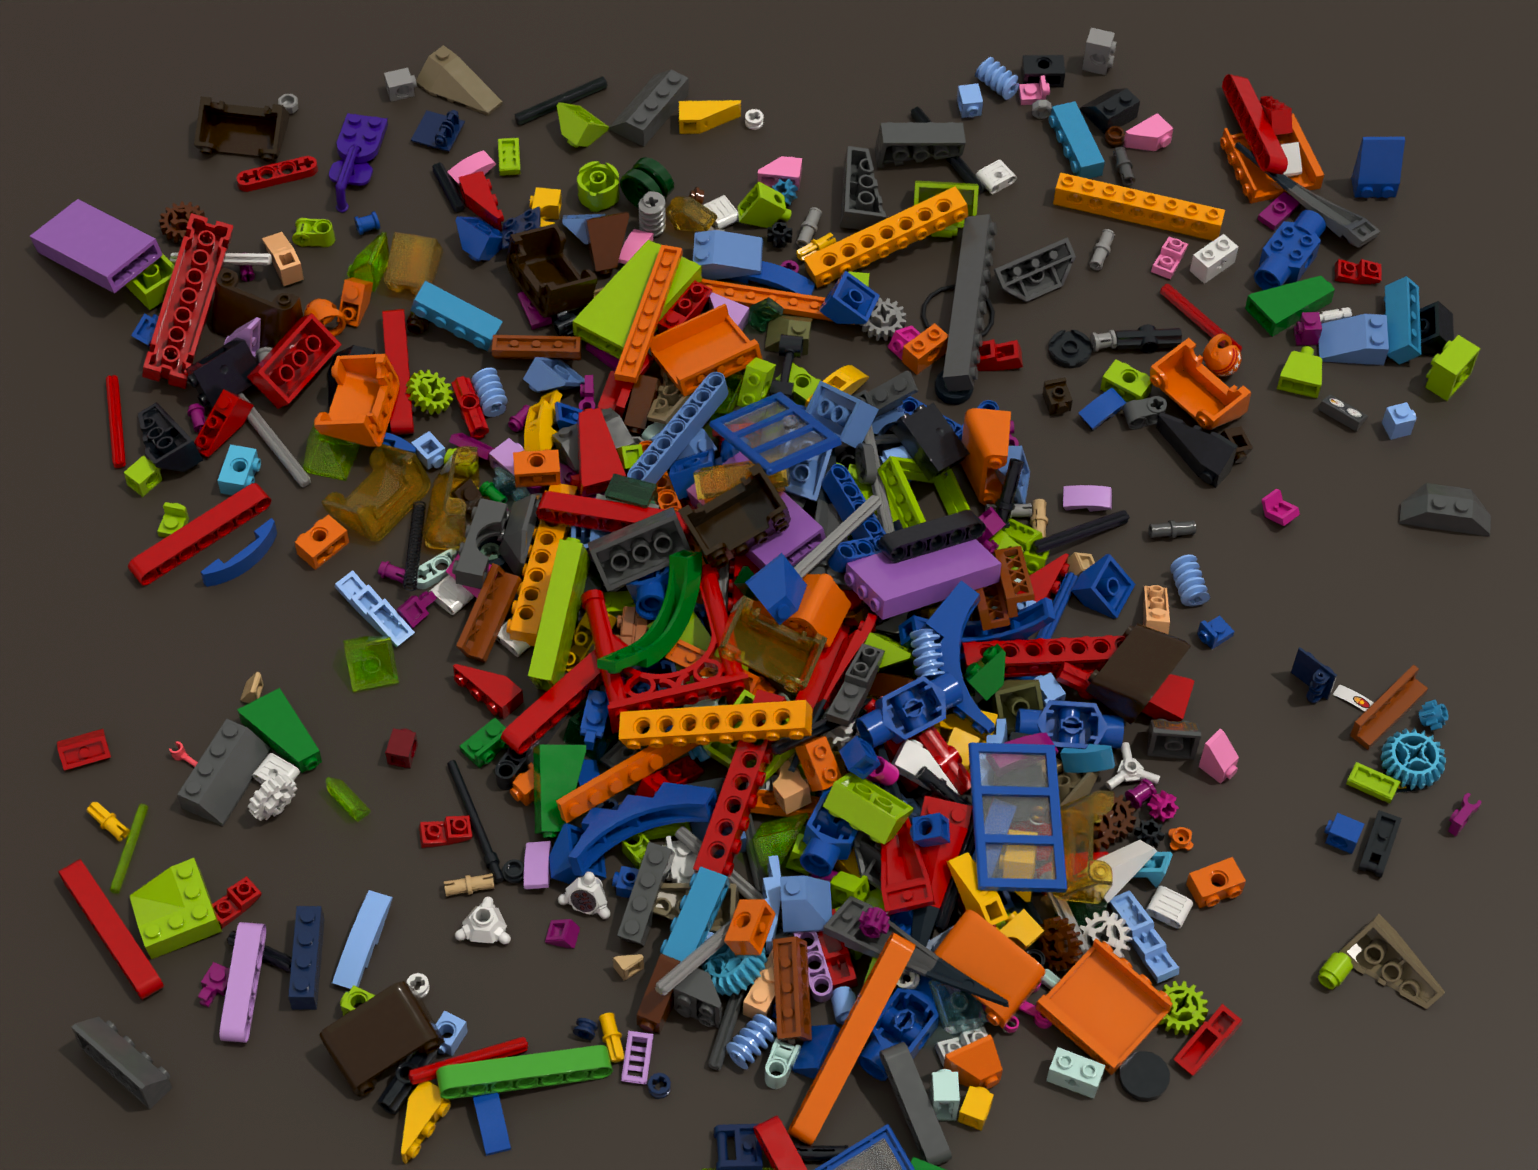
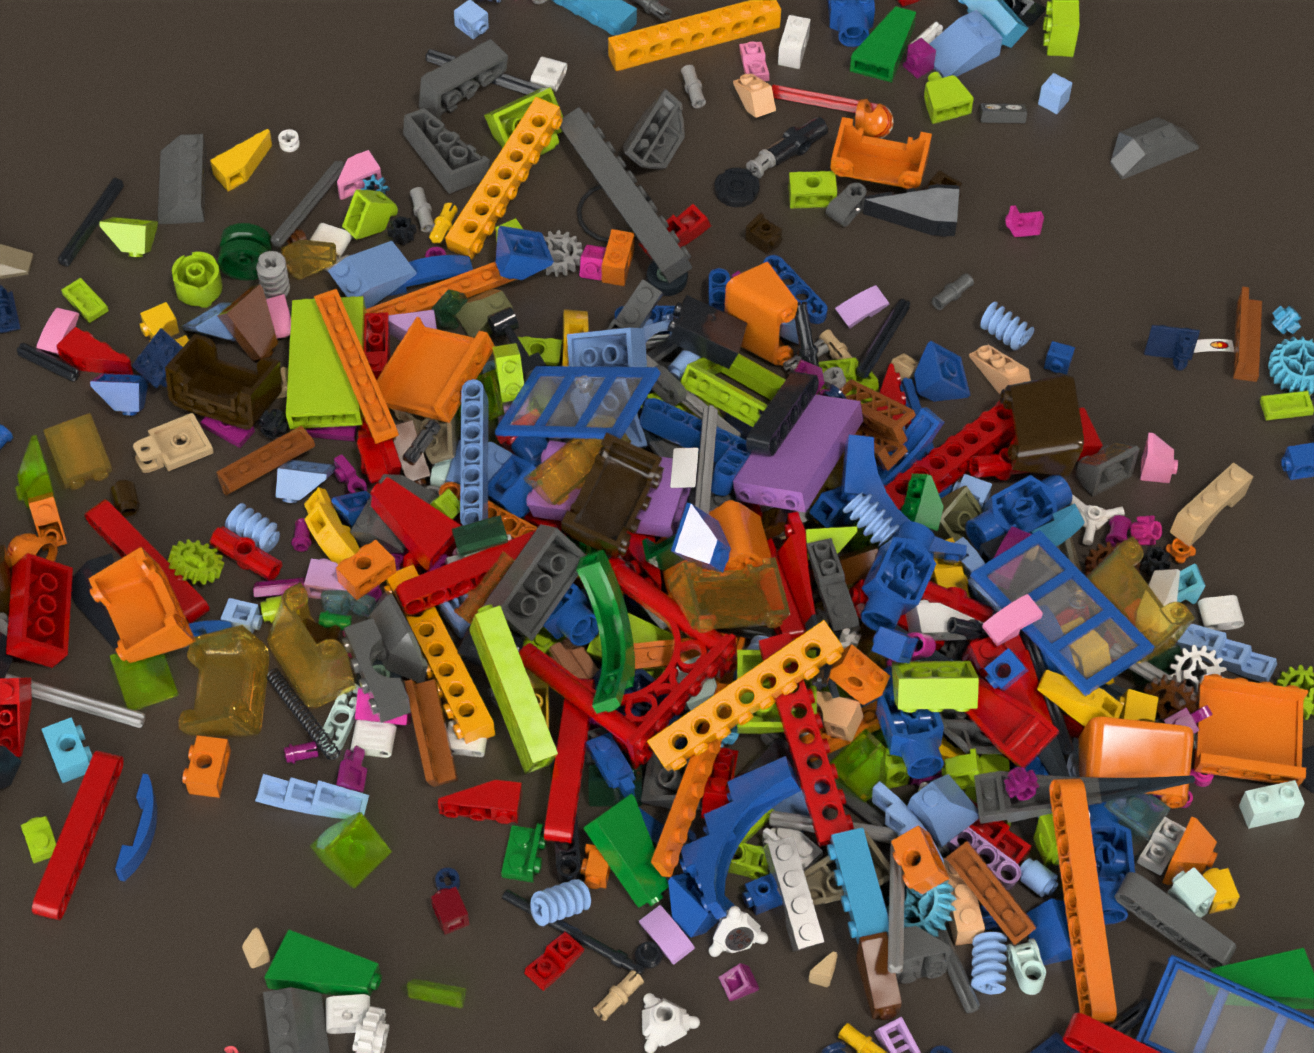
camera: 35 degrees left, 0 degrees up
(419, 720) = (447, 872): none -> dark blue bush
(456, 316) = (164, 475): dark azure brick -> none
(479, 789) = (560, 902): none -> light blue piece
(481, 290) = (164, 448): none -> tan plate
(592, 533) = (478, 596): none -> clear orange pin
(653, 398) = (422, 441): none -> black axle
(721, 175) = (307, 204): none -> dark grey axle
(814, 529) = (684, 467): none -> white sticker
(963, 795) = (1011, 619): none -> bright pink slope
(992, 548) = (834, 392): none -> dark blue bush
(1007, 537) = (834, 376): none -> light grey bush
(1046, 454) = (799, 287): none -> blue beam
(1054, 964) = (1184, 718): none -> magenta plate
(1102, 408) = (809, 222): blue slope -> none
(1144, 283) = (755, 95): none -> light nougat slope
(1209, 818) = (1199, 513): none -> tan arch
(1222, 872) = (1245, 556): orange brick -> none

